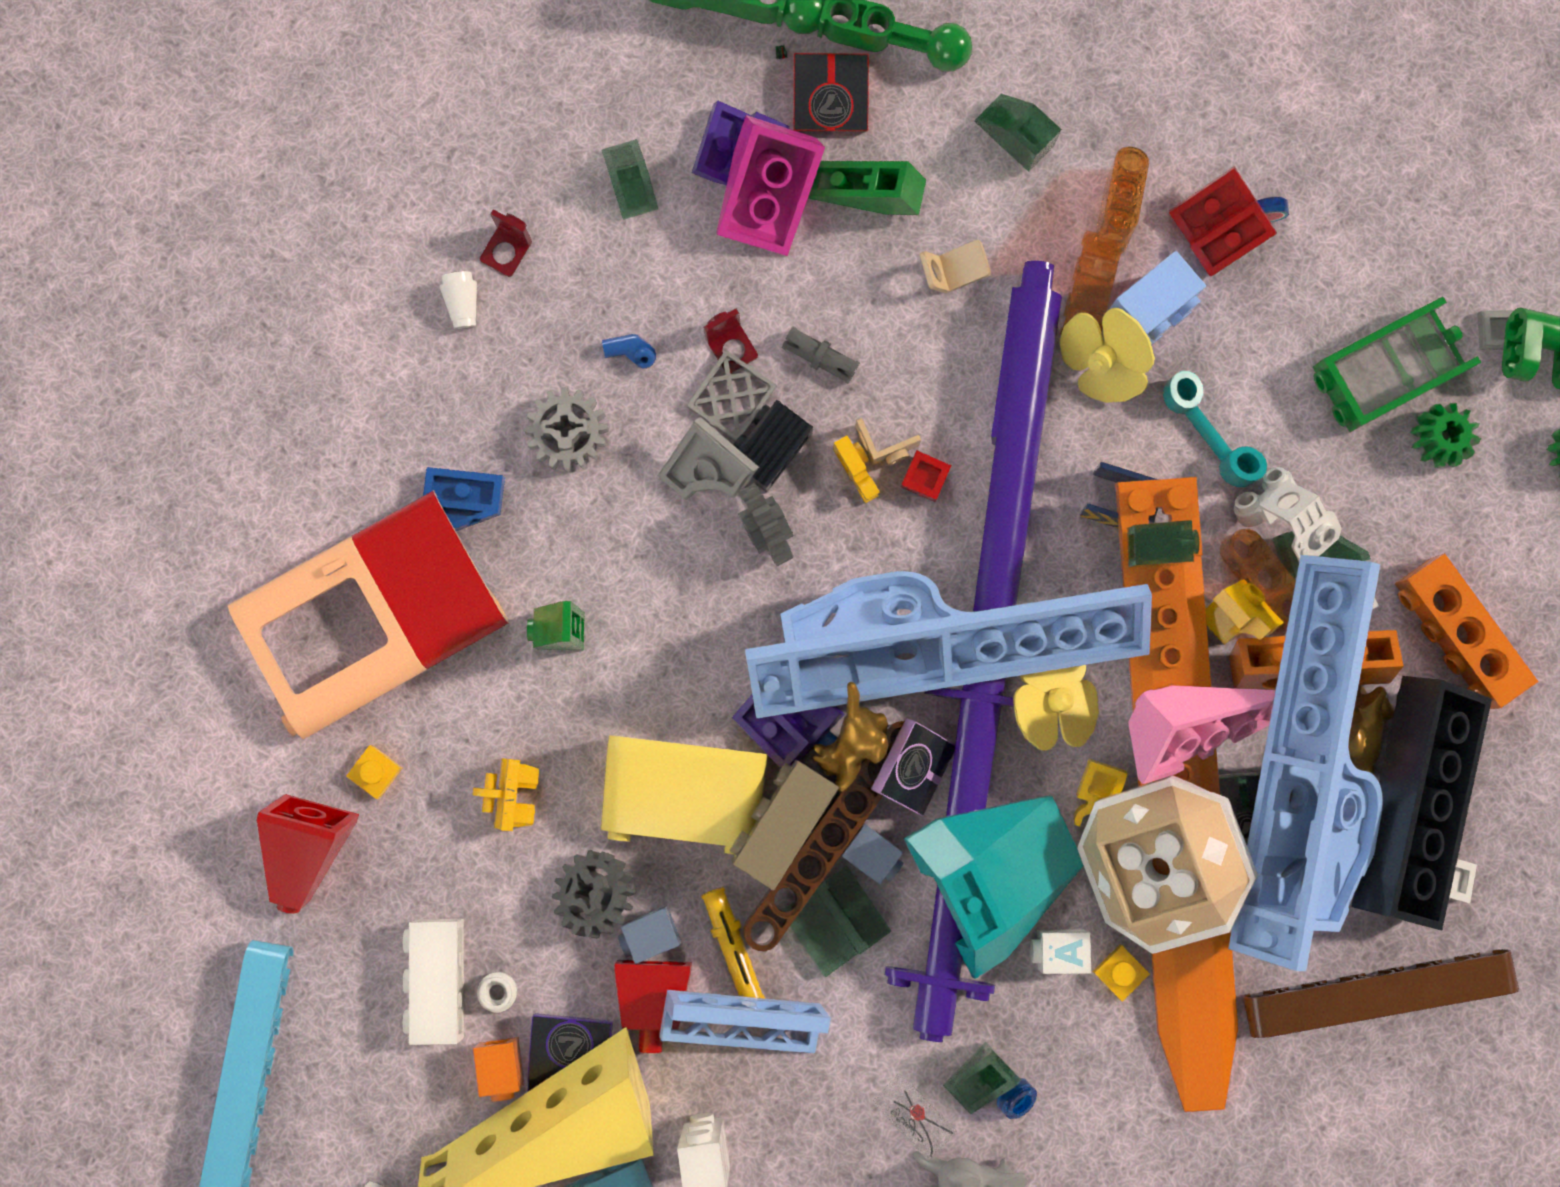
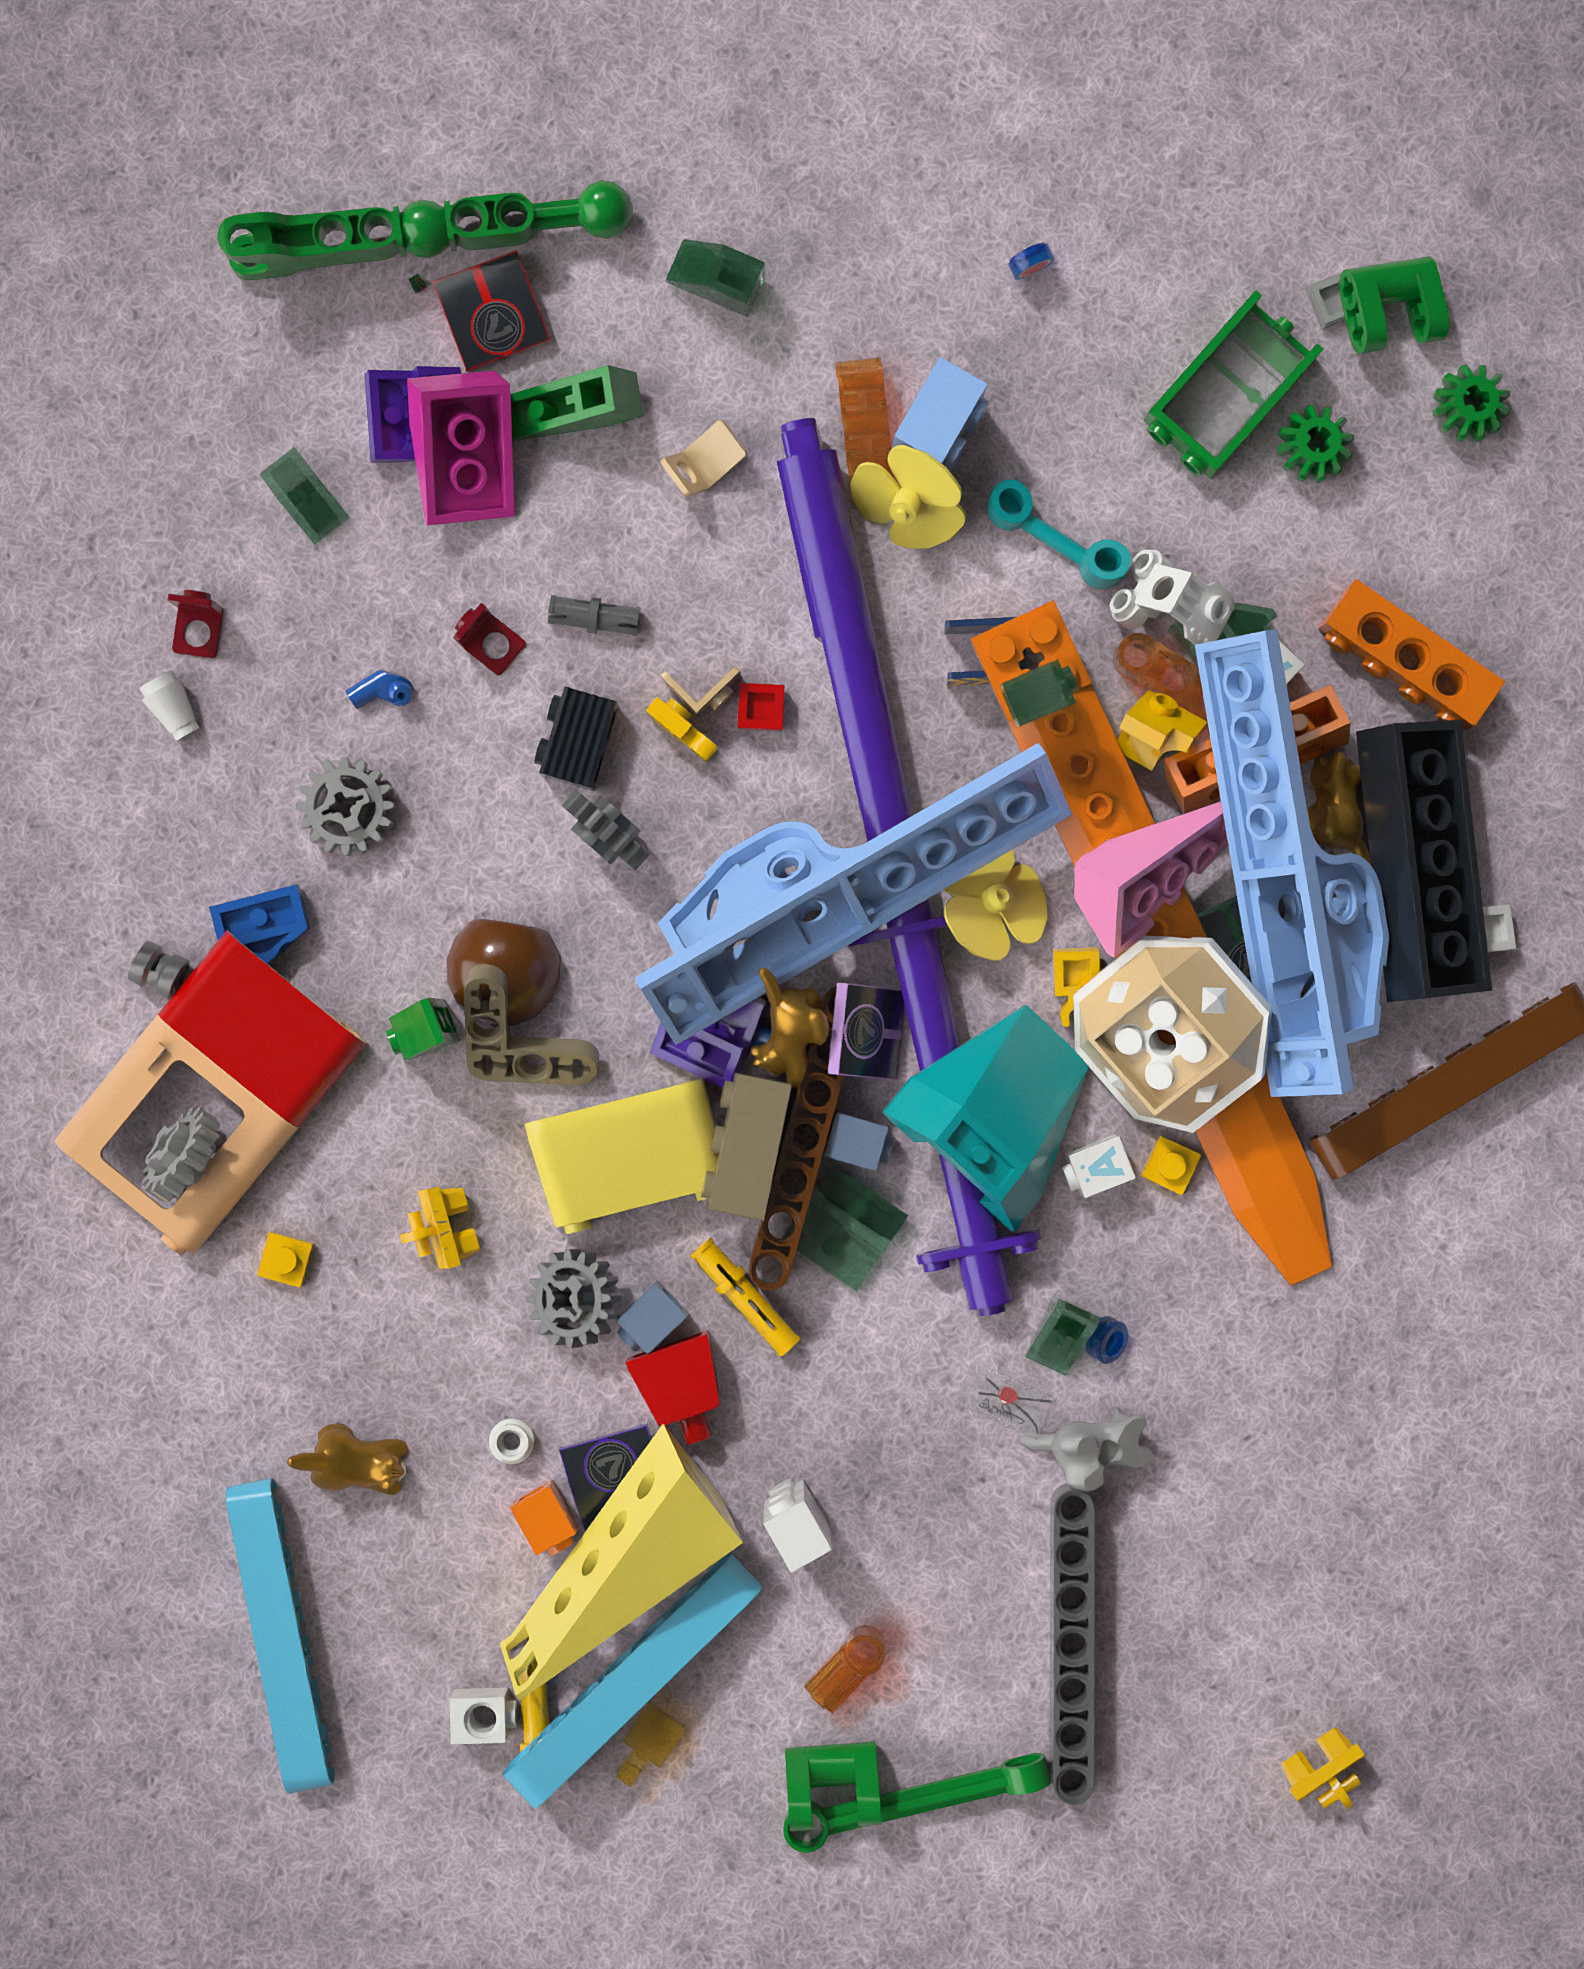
camera: 20 degrees left, 5 degrees up
(299, 847) = (239, 1369): red slope -> none
(323, 654) = (180, 1154): none -> light grey gear
(357, 957) = (346, 1461): none -> pearl gold animal
(366, 501) = (158, 969): none -> flat silver wheel
(434, 981) = (440, 1455): white brick -> none
(614, 664) = (500, 1045): none -> dark tan beam
(639, 607) = (520, 951): none -> reddish brown cylinder
(706, 462) = (515, 784): light grey tile -> none
(710, 379) = (521, 663): light grey window -> none
(743, 1013) = (782, 1361): light blue fence -> none
(1121, 200) = (862, 298): clear orange beam -> none
(1222, 221) = (983, 295): red slope -> none

